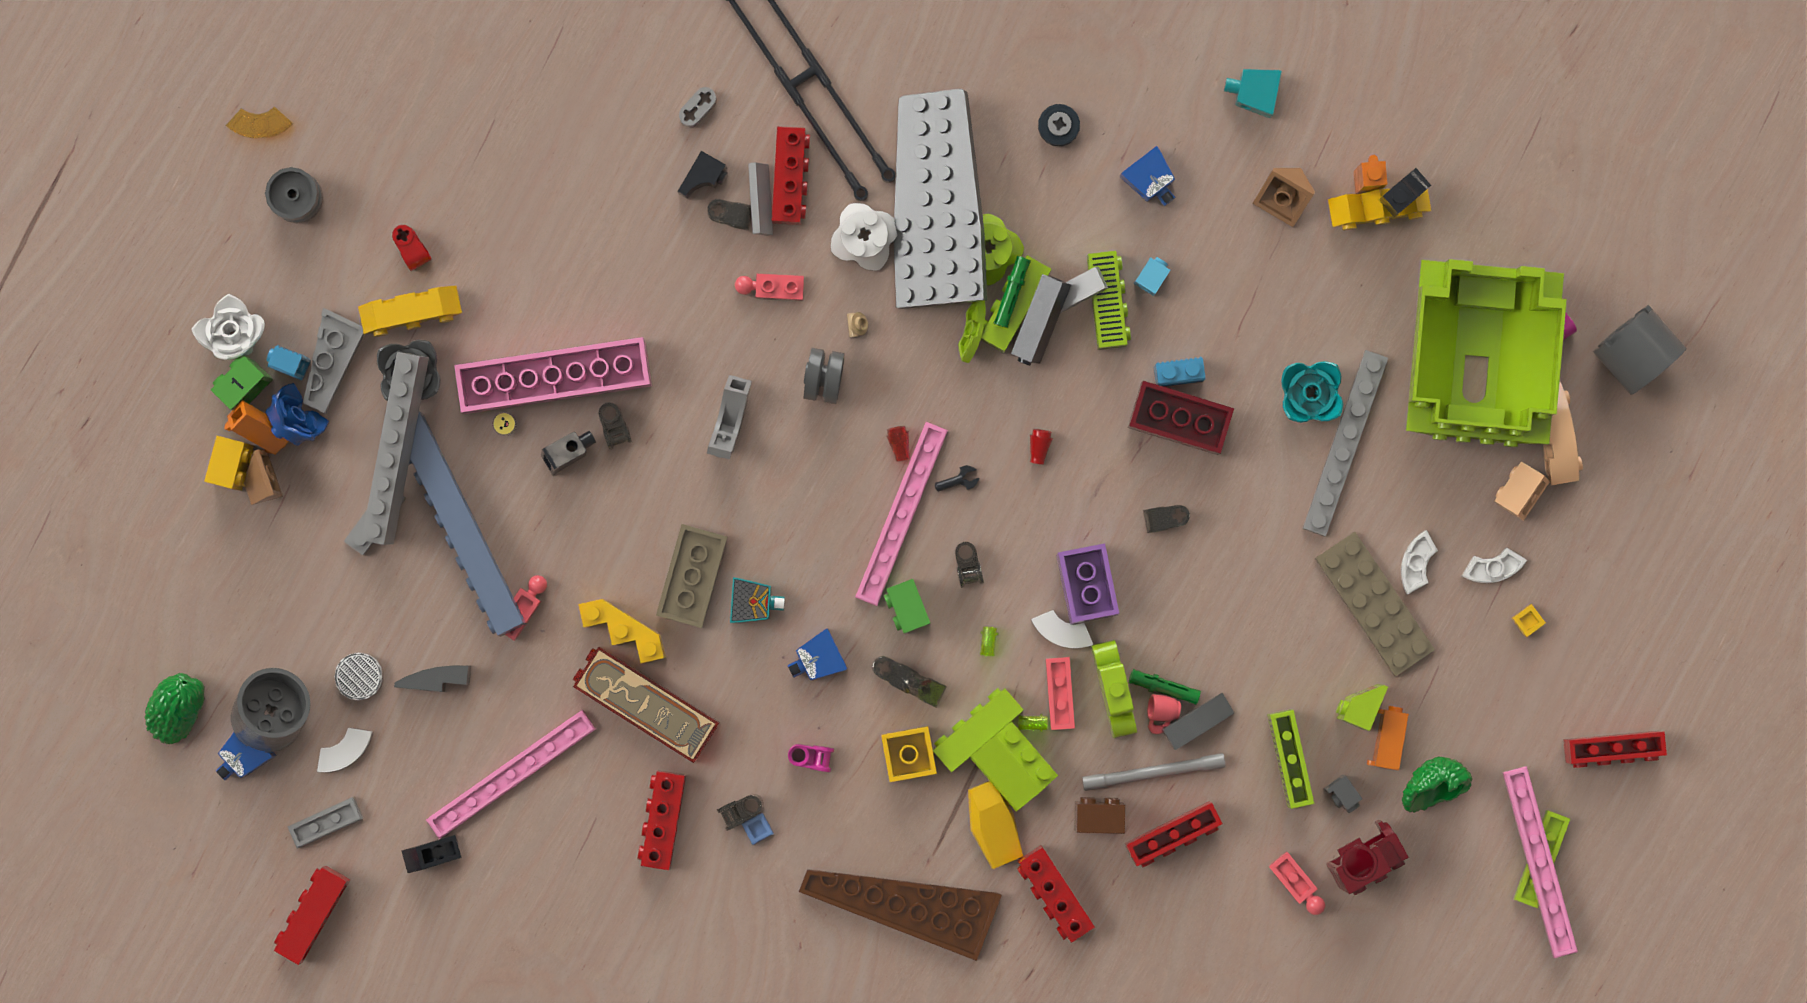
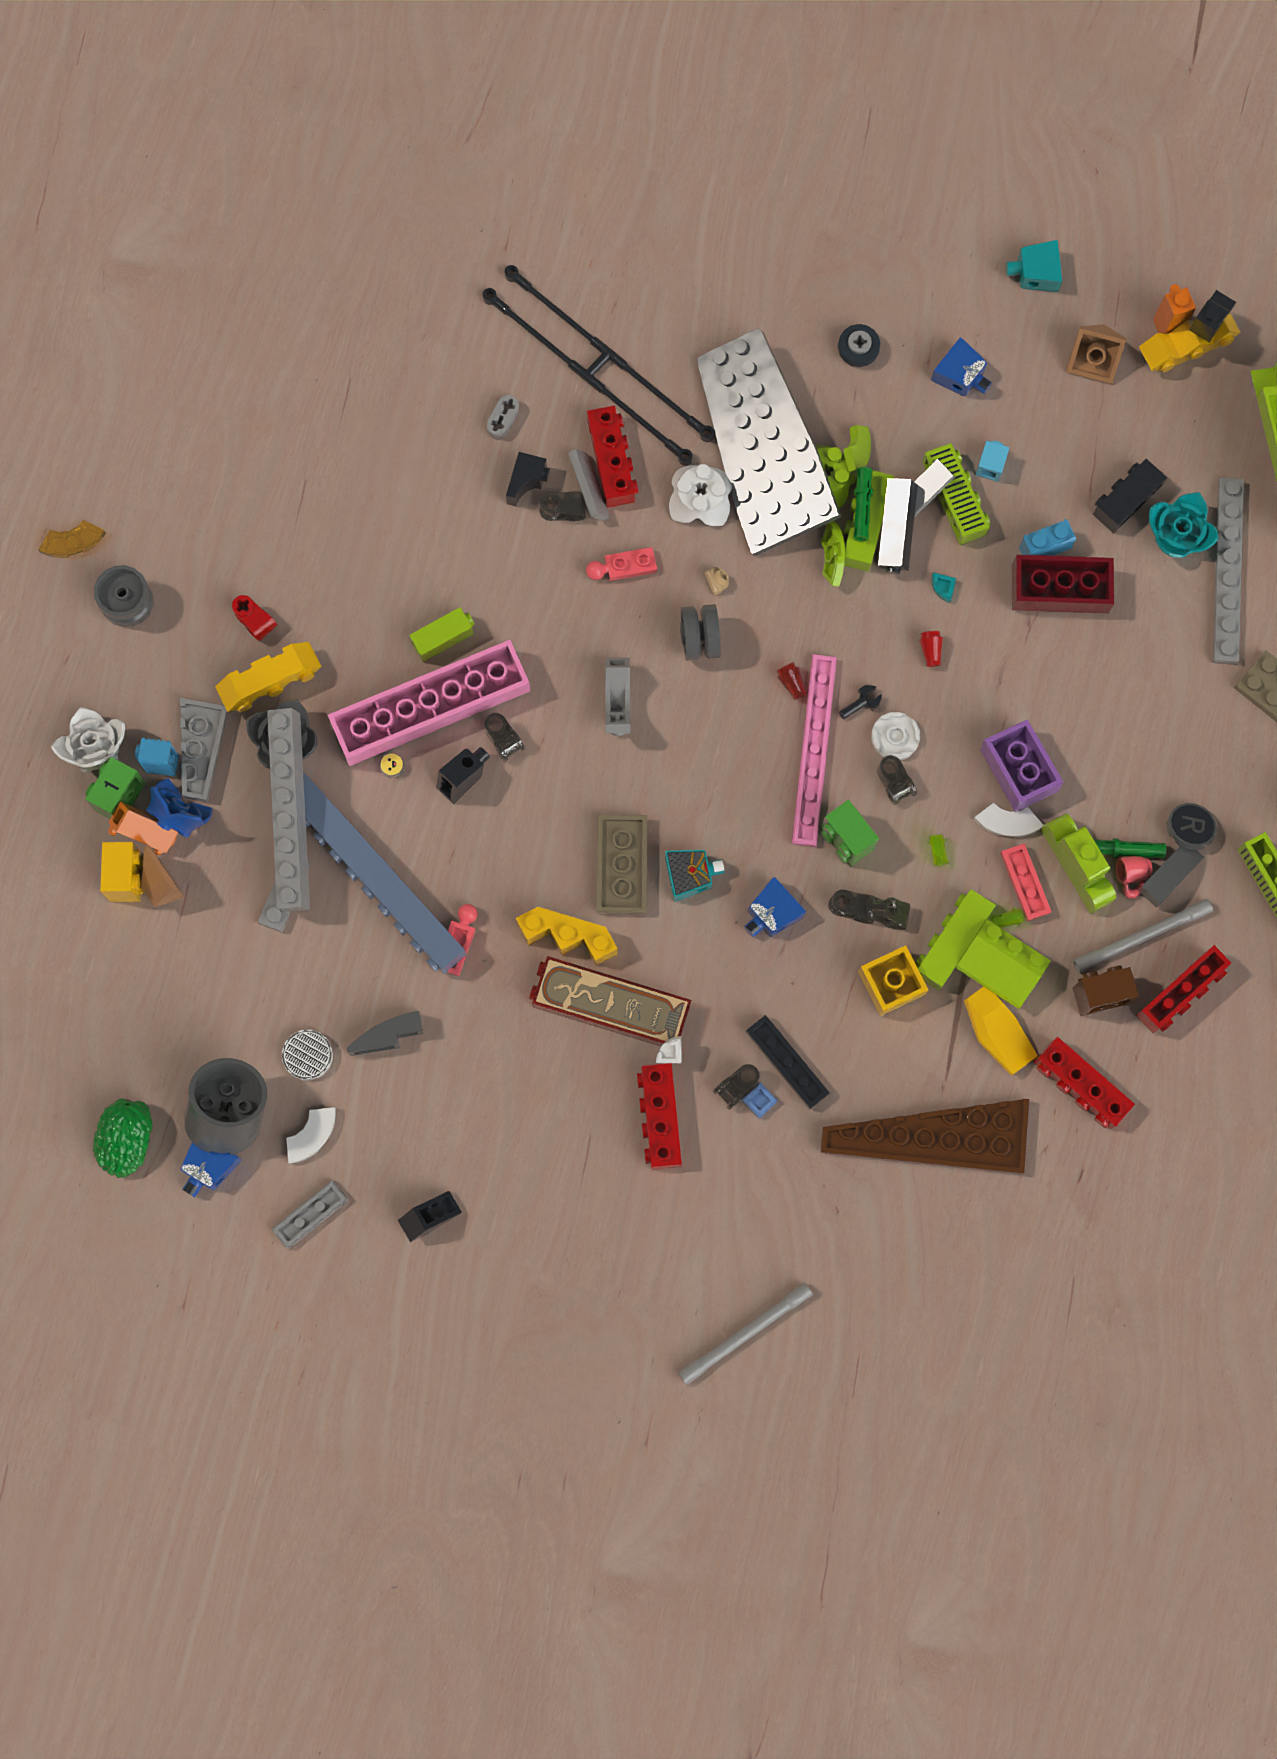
camera: 20 degrees left, 10 degrees down
(311, 914) = (320, 1312): red brick -> none
(510, 774) = (490, 1113): bright pink tile -> none
(583, 310) = (442, 634): none -> lime brick
(686, 765) = (670, 1051): none -> white tile
(792, 801) = (787, 1062): none -> black plate
(813, 757) = (798, 1010): dark pink piece -> none
(981, 521) = (895, 735): none -> white tile
(1027, 232) = (859, 448): none -> lime tile
(1069, 387) = (943, 586): none -> teal tile
(1161, 518) = (1073, 685): clear smoke piece -> none
(1230, 682) = (1191, 826): none -> black tile
(1272, 345) = (1129, 495): none -> black brick

